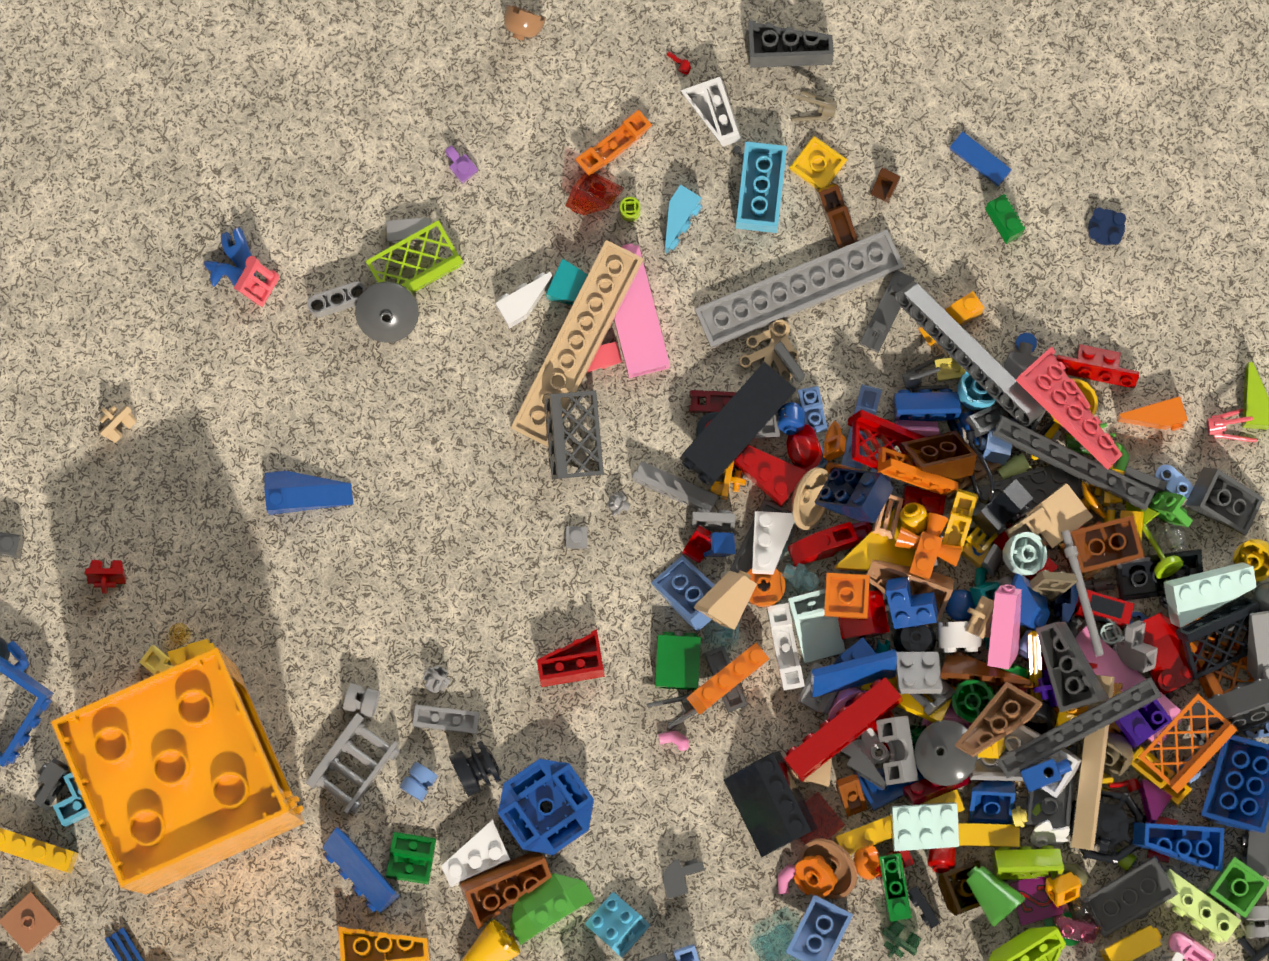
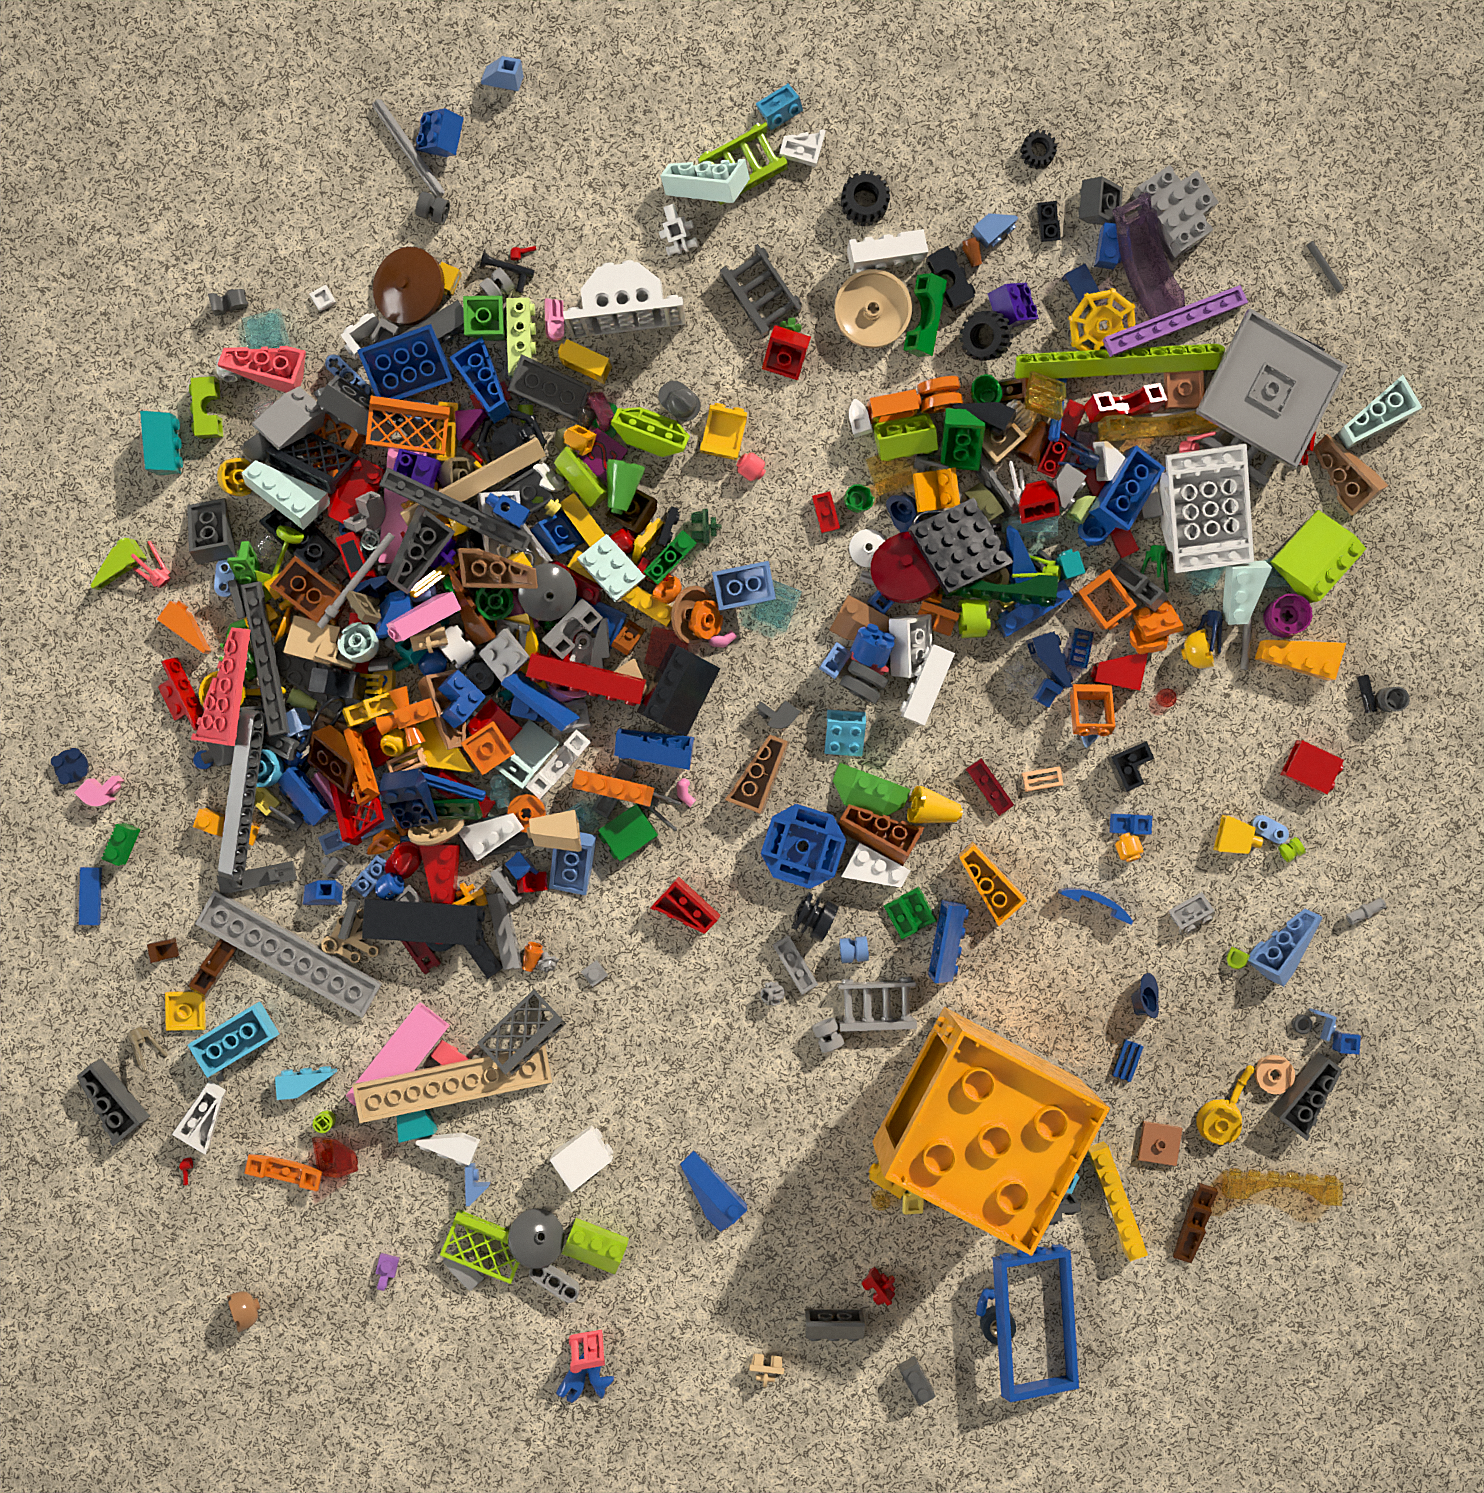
camera: 130 degrees left, 10 degrees up
(105, 509) = (834, 1324): none -> dark grey slope
(338, 356) = (595, 1246): none -> lime slope
(425, 404) = (581, 1157): none -> white slope
(471, 290) = (472, 1188): none -> medium blue slope
(635, 495) = (531, 956): none -> orange cone
(637, 816) = (759, 777): none -> medium nougat wedge
(664, 452) = (484, 958): none -> black plate
(734, 743) = (655, 747): none -> blue wedge
(813, 528) = (457, 808): none -> dark green plate
(829, 357) = (323, 893): none -> blue slope
(834, 540) = (454, 787): none -> blue axle
(845, 384) = (334, 866): none -> light grey tile
(926, 876) = (644, 542): none -> yellow wing
(1065, 229) = (95, 794): none -> bright pink brick

